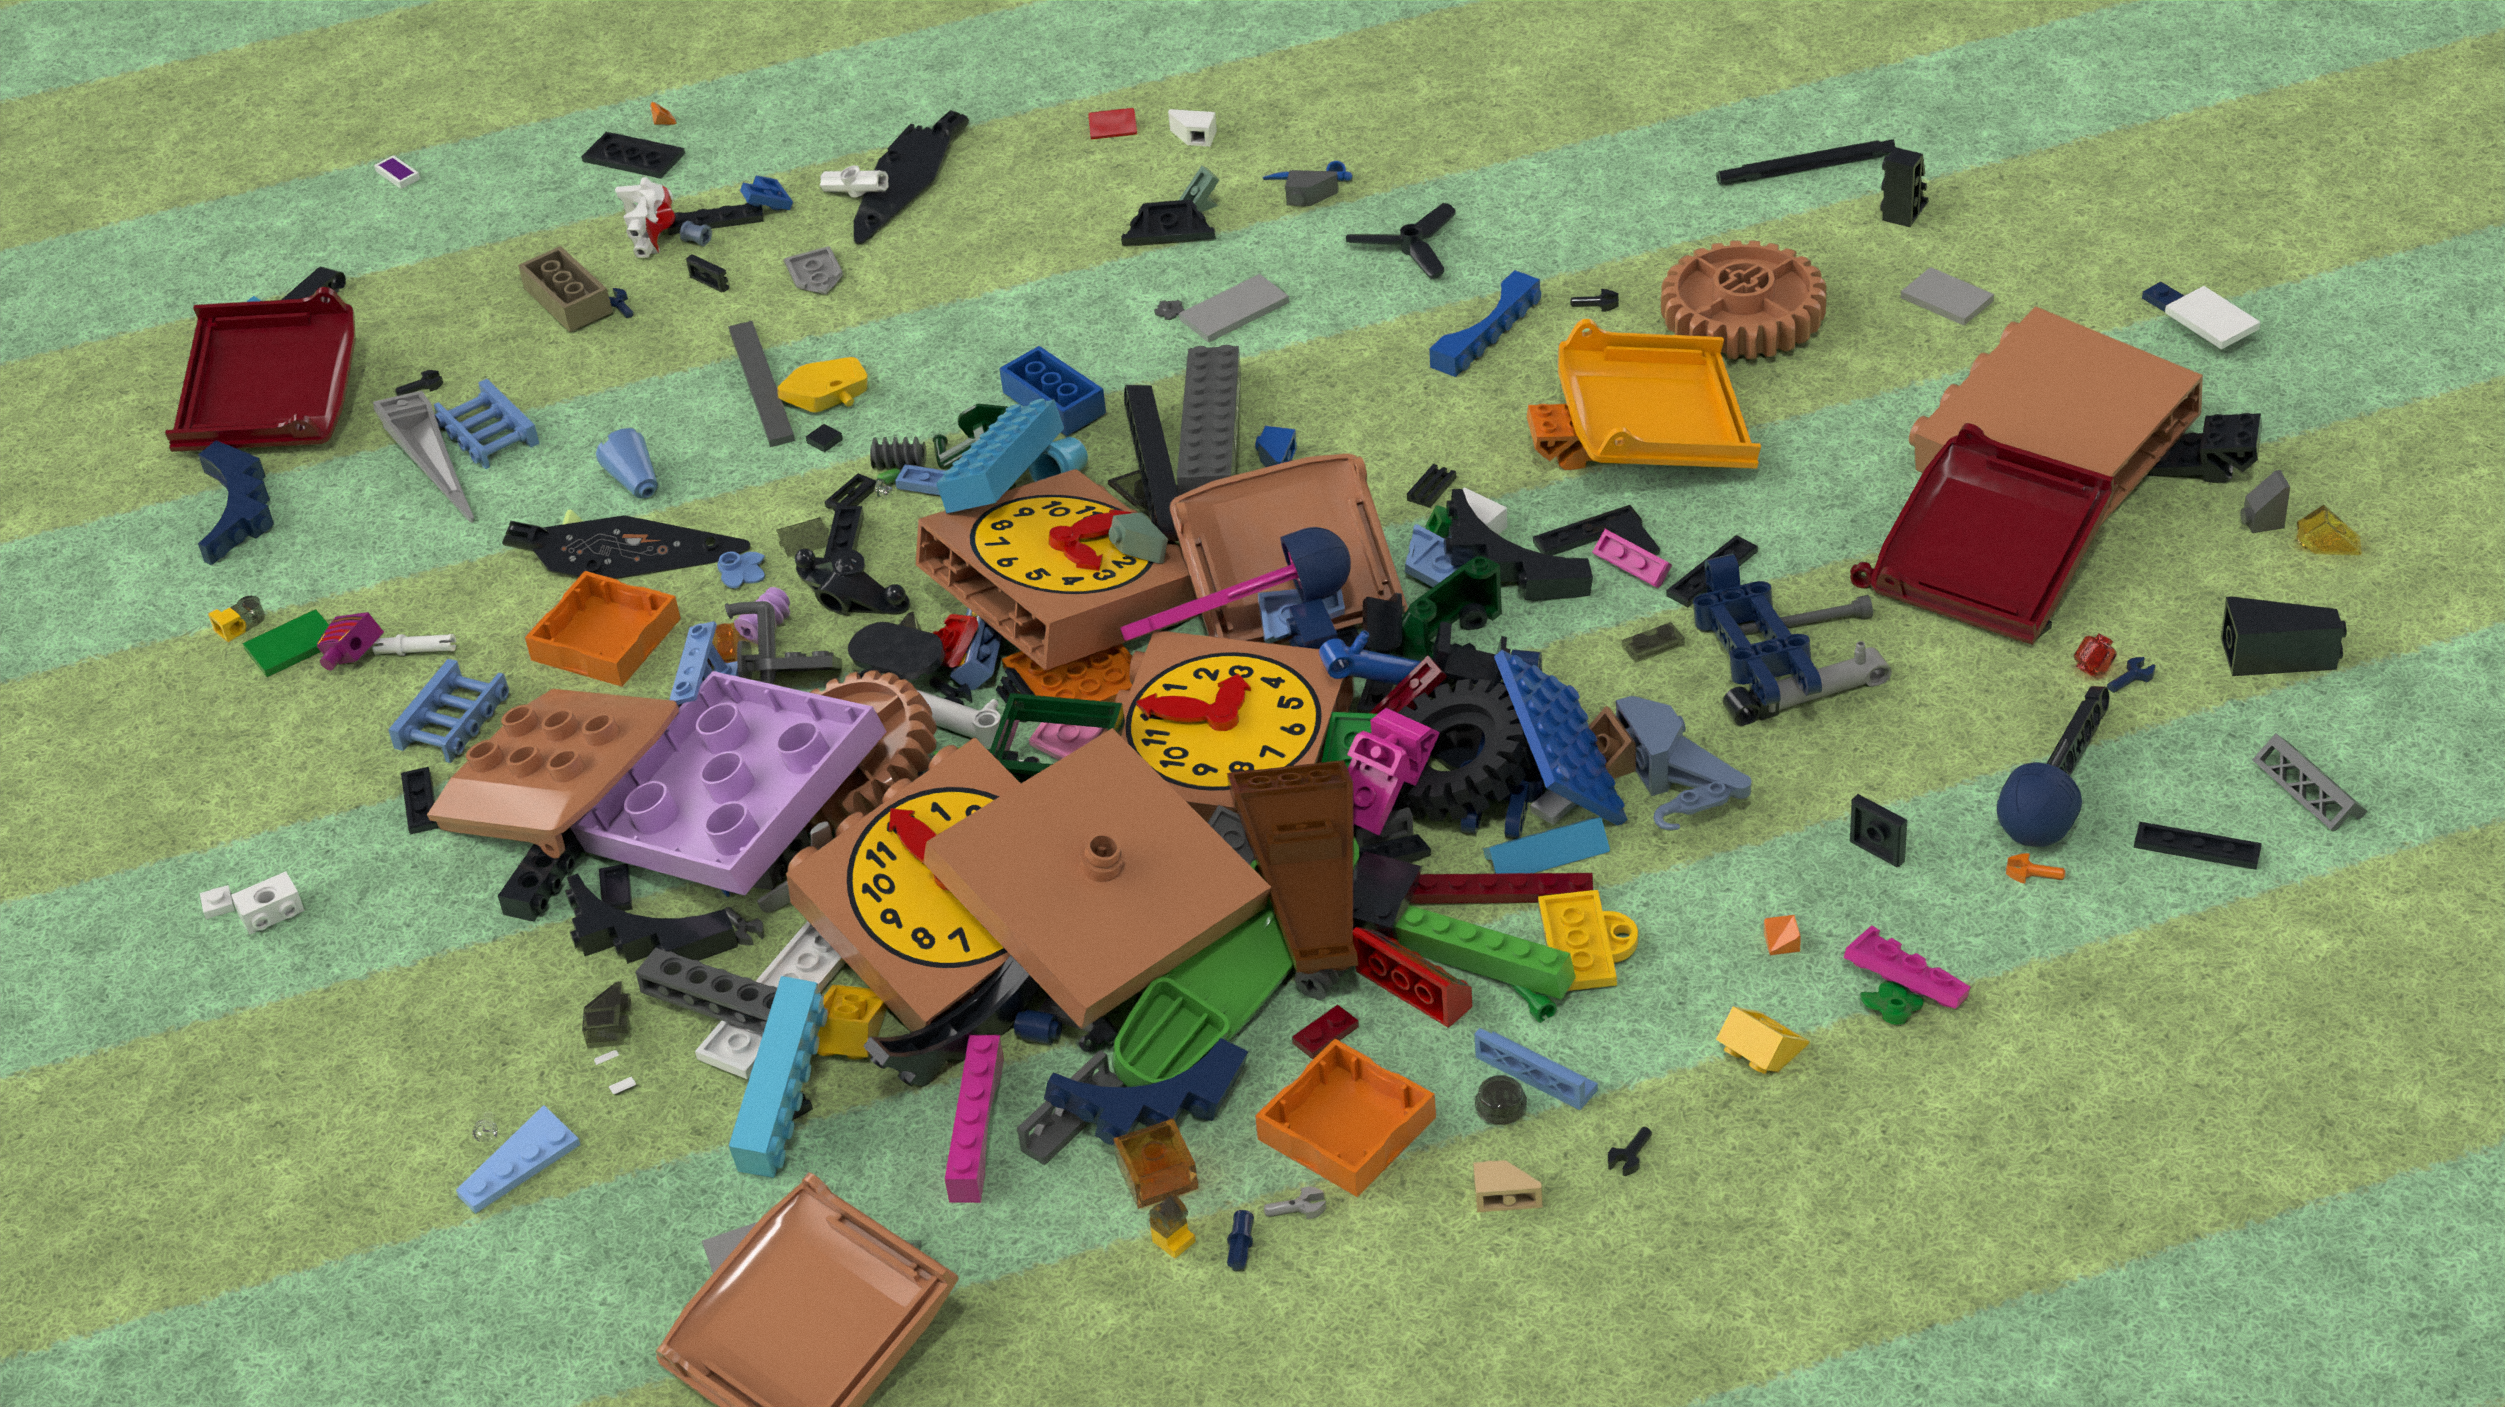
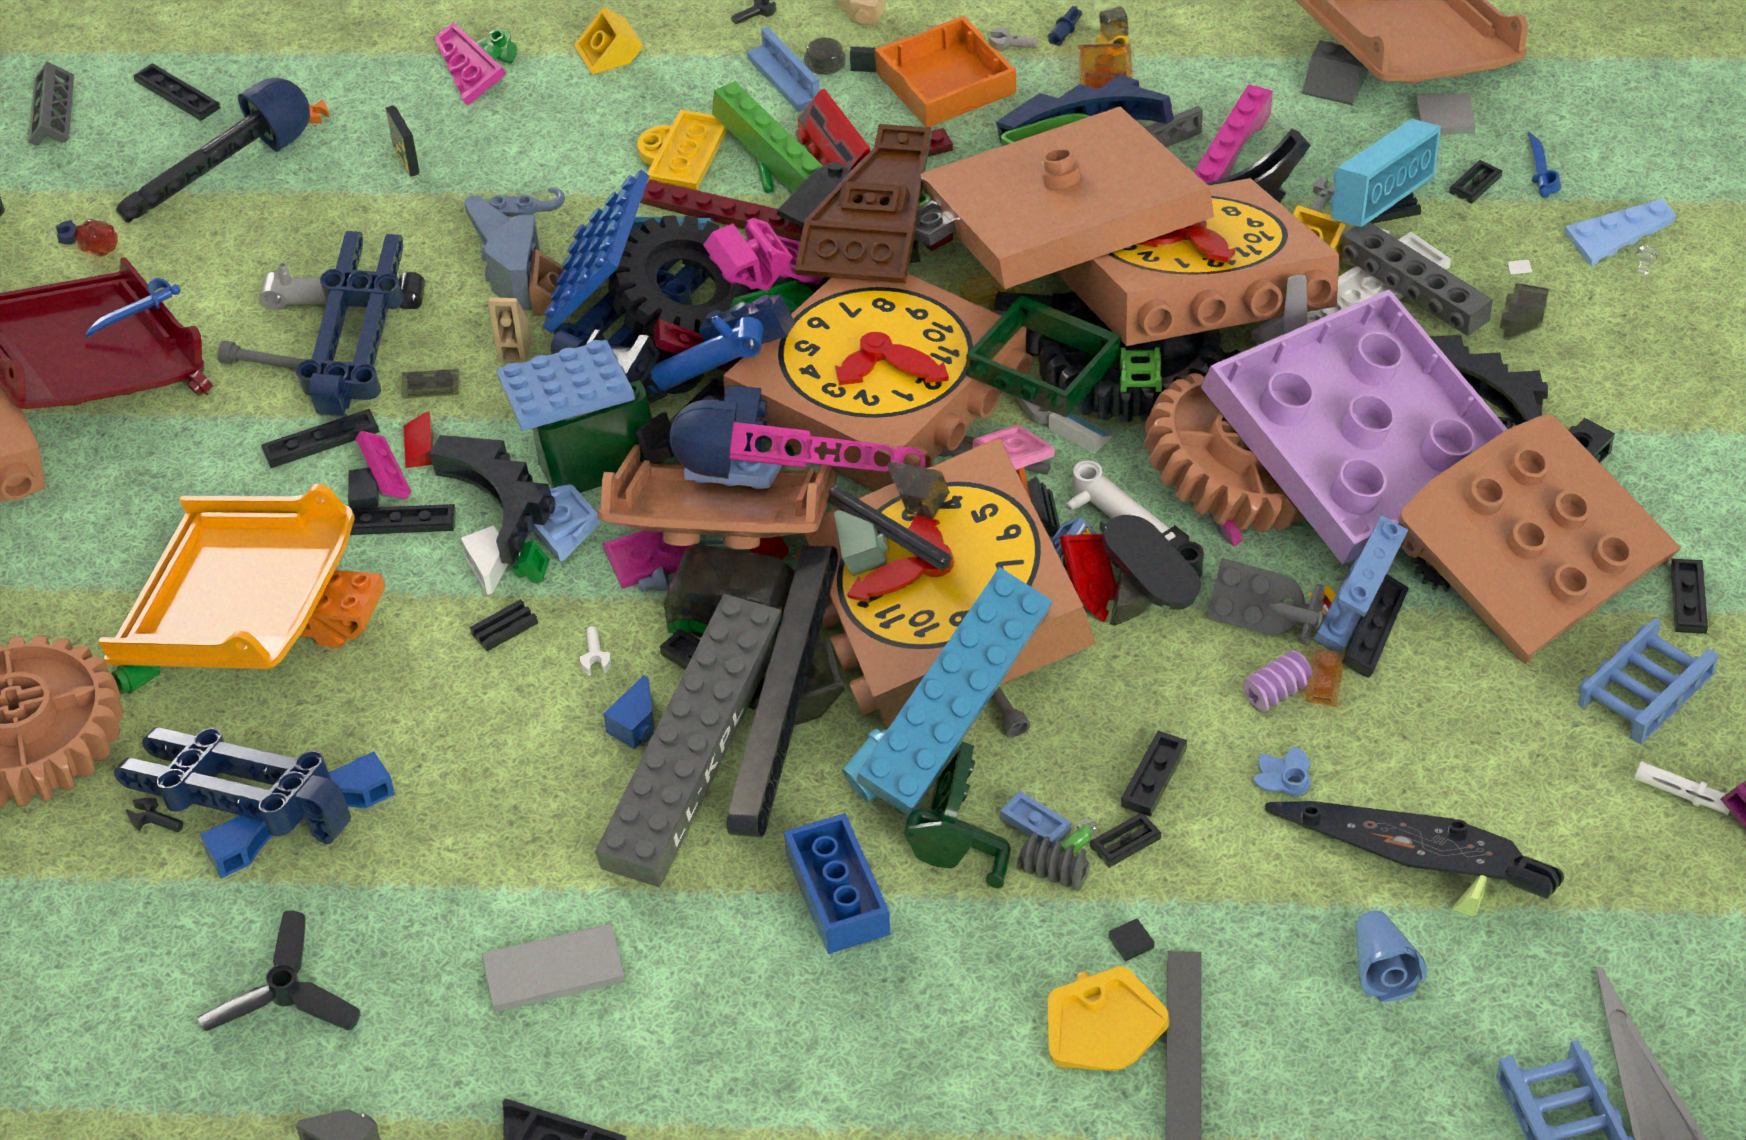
camera: 160 degrees left, 5 degrees up
(603, 628) = (1459, 727): orange tile -> none
(613, 1201) = (1543, 175): none -> blue sword
(689, 1194) = (1488, 177): none -> black tile
(807, 534) = (1199, 800): clear smoke piece -> none
(845, 586) = (1173, 690): black piece -> none
(855, 1104) = (1323, 195): none -> light grey bar
(1105, 569) = (919, 488): none -> clear smoke slope
(1115, 544) = (891, 529): none -> black axle
(1169, 309) = (628, 1001): dark grey plant -> none
(1352, 690) = (768, 310): none -> dark blue brick
(1452, 1108) = (862, 59): none -> black tile
(1486, 593) = (564, 384): none -> medium blue plate
(1488, 303) = (299, 785): none -> dark blue beam
(1599, 668) = (510, 329): none -> tan slope
(1618, 592) = (418, 441): none -> red slope
(1782, 935) = (532, 111): orange slope -> none
(1959, 593) = (138, 306): none -> blue sword

